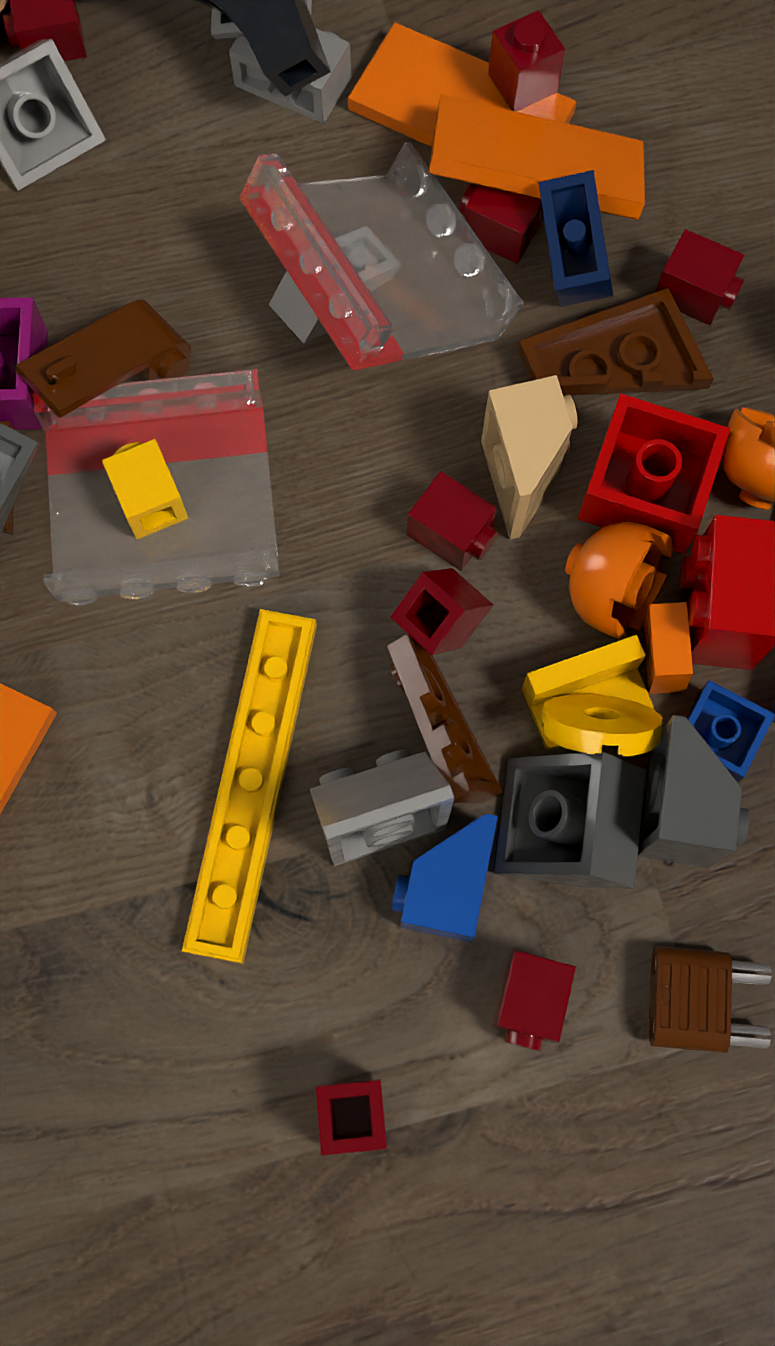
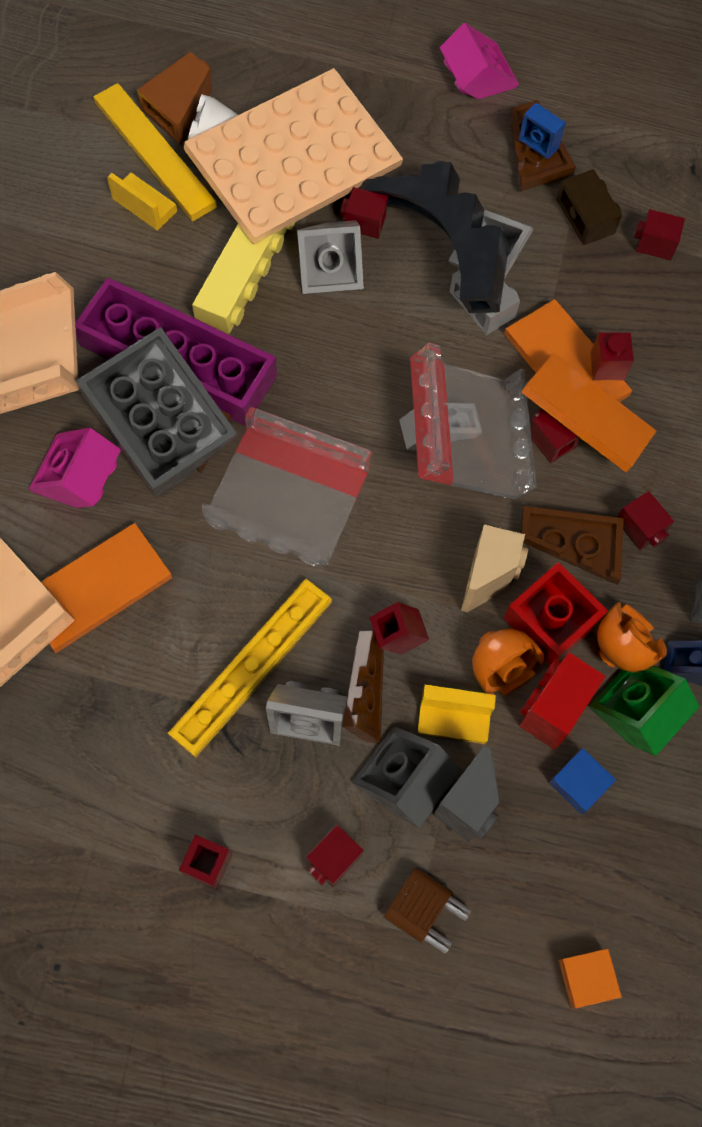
camera: 25 degrees right, 5 degrees down
(104, 356) = (298, 405): reddish brown door -> none
(145, 488) = (280, 484): yellow brick -> none
(448, 884) = (323, 772): blue slope -> none
(452, 522) = (432, 585): dark red brick -> none
(576, 238) = (583, 467): dark blue slope -> none
(595, 720) = (450, 729): yellow tile -> none
(667, 648) = (509, 712): orange piece -> none
(729, 726) = (518, 773): blue piece -> none

